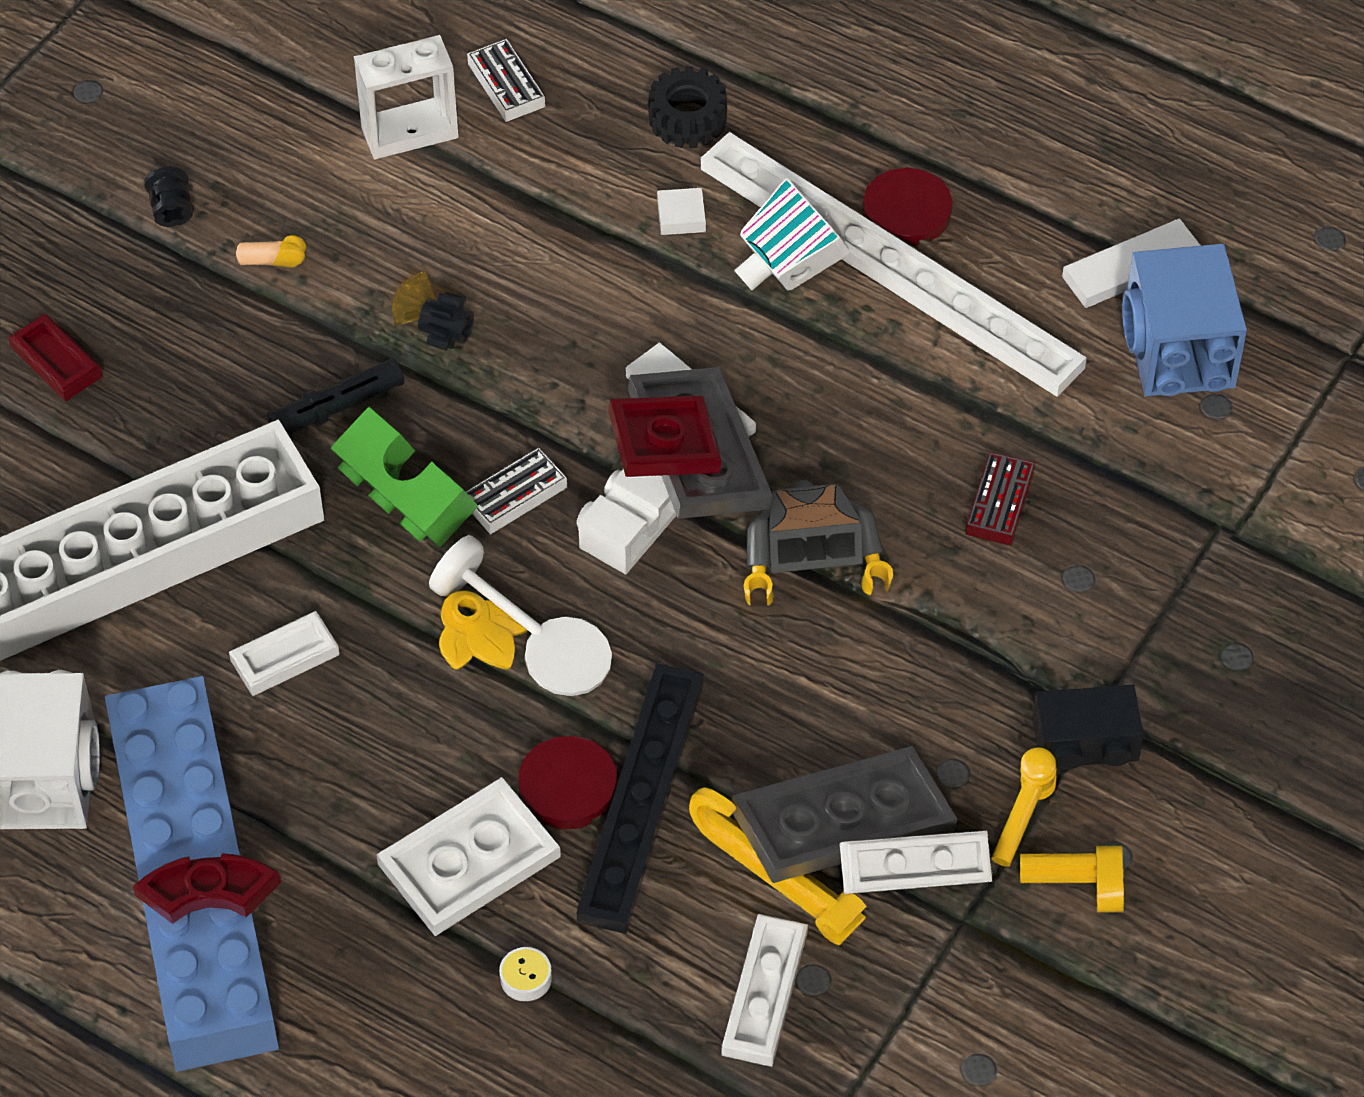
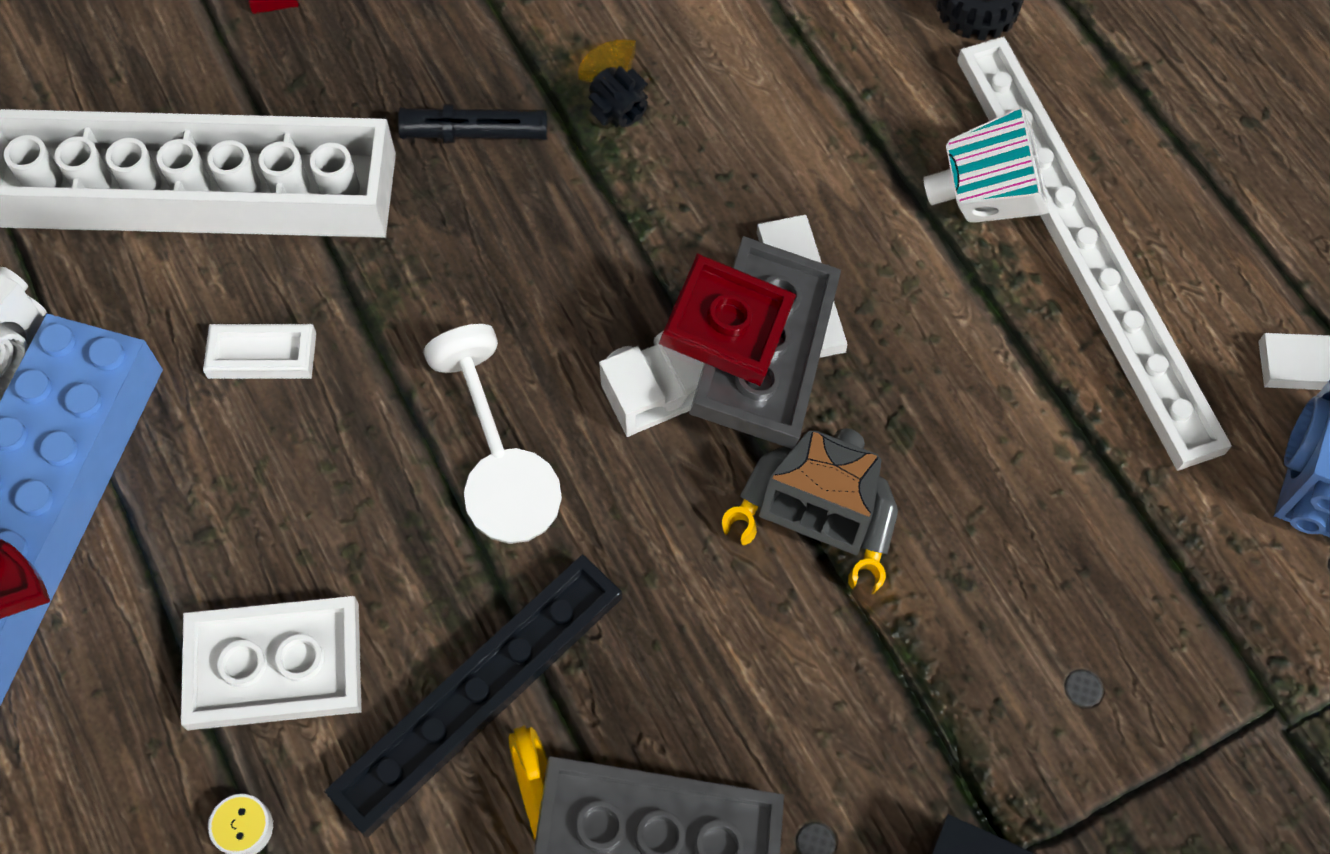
camera: 30 degrees right, 10 degrees up
(430, 502) = (461, 199): bright green arch -> none
(483, 635) = (442, 431): yellow plate -> none
(516, 490) = (575, 296): tile -> none
(567, 782) = (421, 632): dark red tile -> none
(681, 211) = (912, 93): white tile -> none
(909, 204) = (1140, 191): dark red tile -> none
(1000, 498) = (1050, 554): tile -> none

